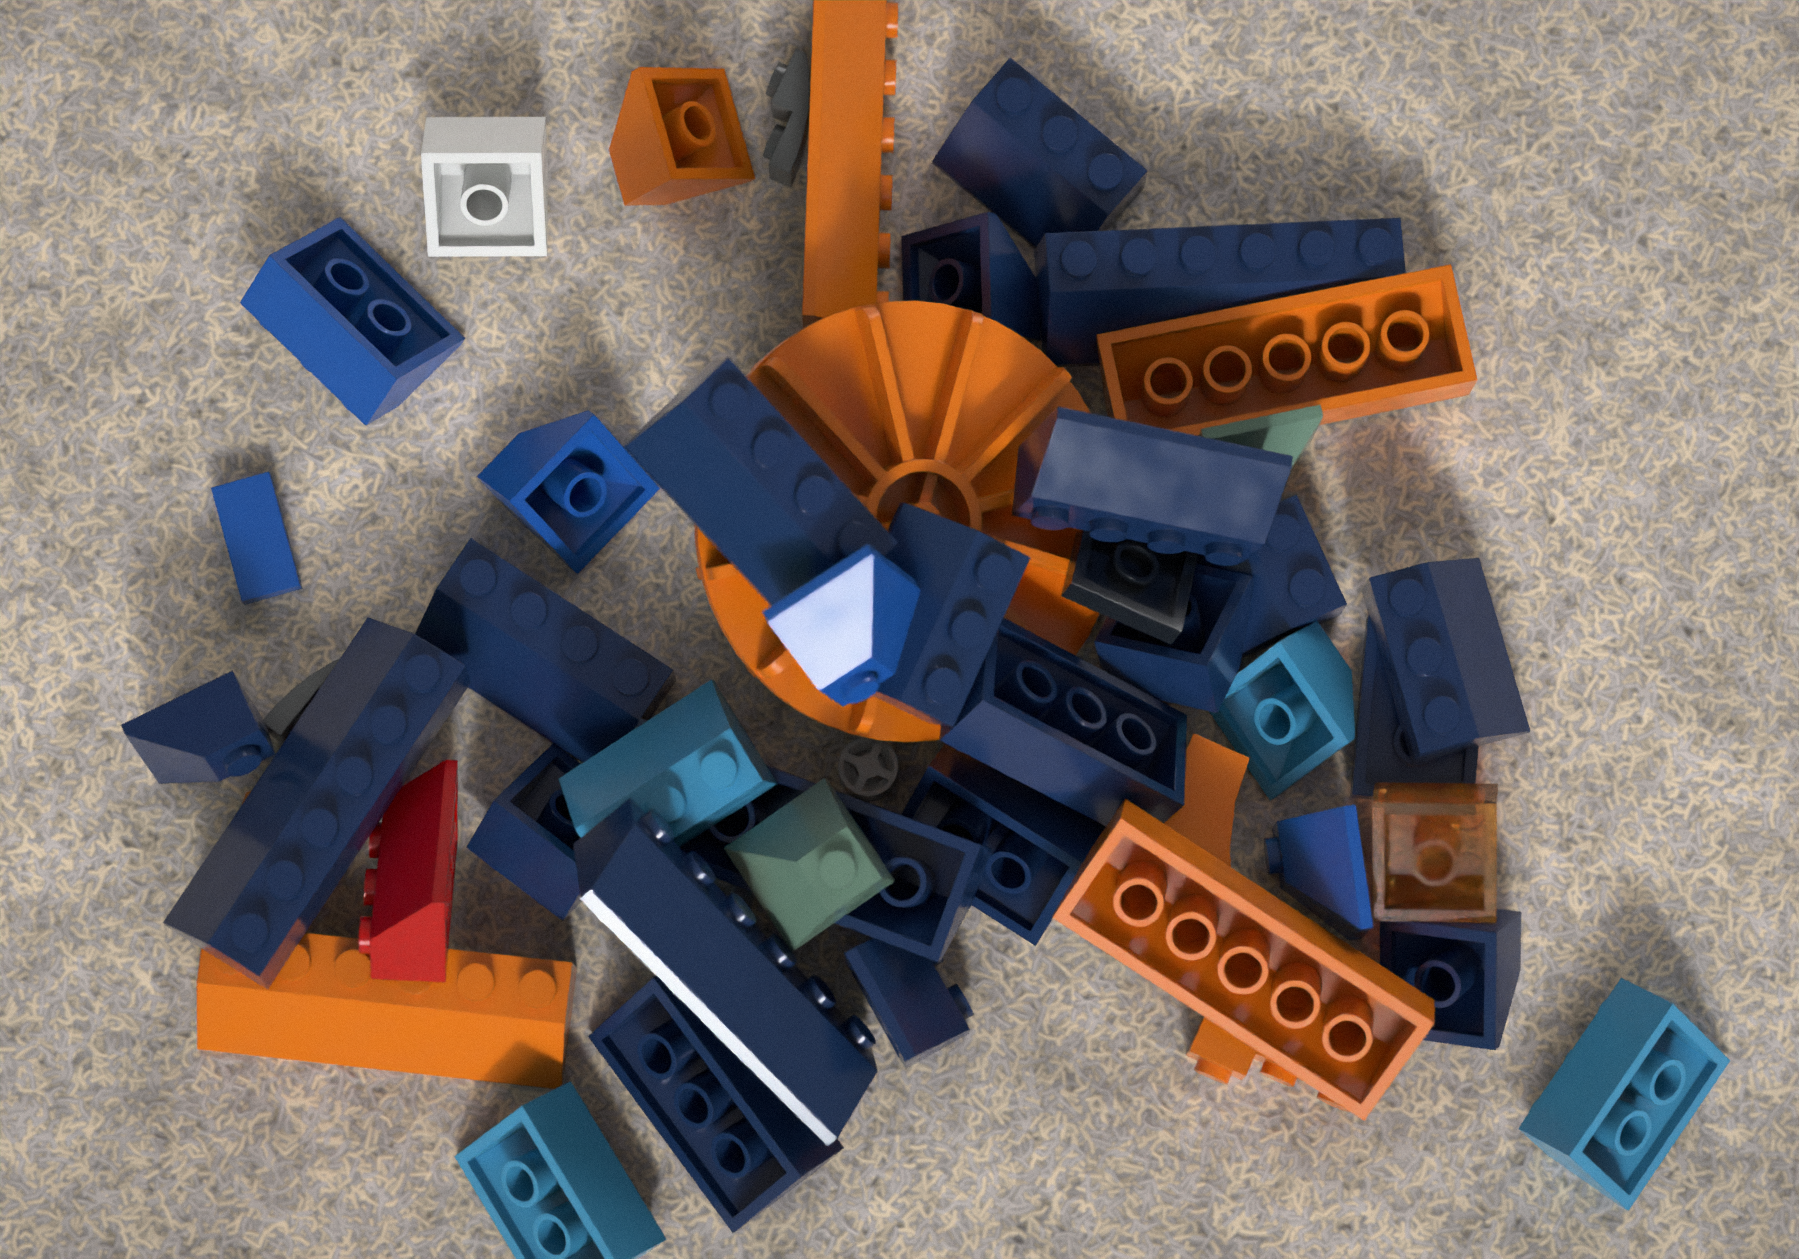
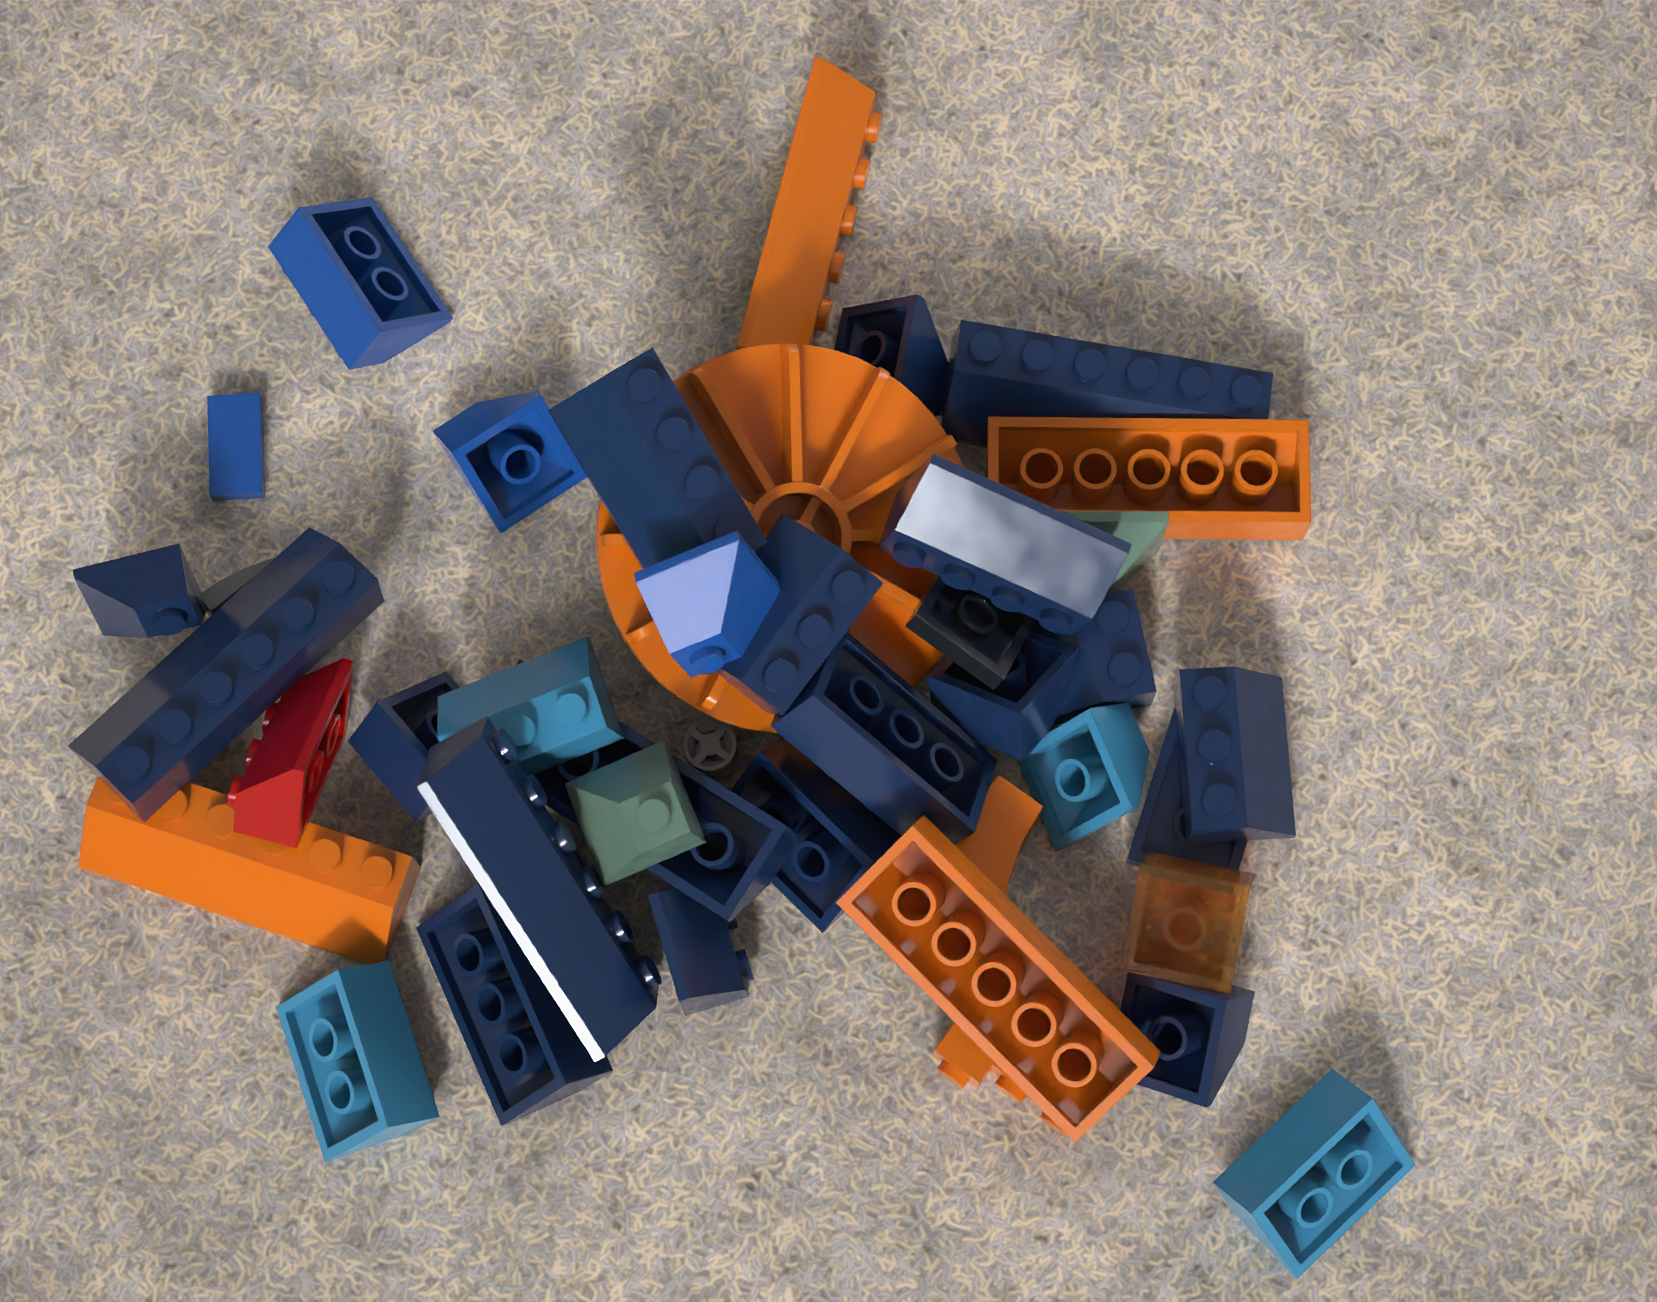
camera: 15 degrees right, 5 degrees down
(485, 186) = (498, 194): white slope -> none
(542, 655) = (451, 590): dark blue slope -> none
(678, 136) = (670, 185): orange slope -> none
(790, 104) = (758, 208): dark grey slope -> none
(1037, 160) = (972, 263): dark blue slope -> none
(1323, 867) = (1087, 915): blue slope -> none

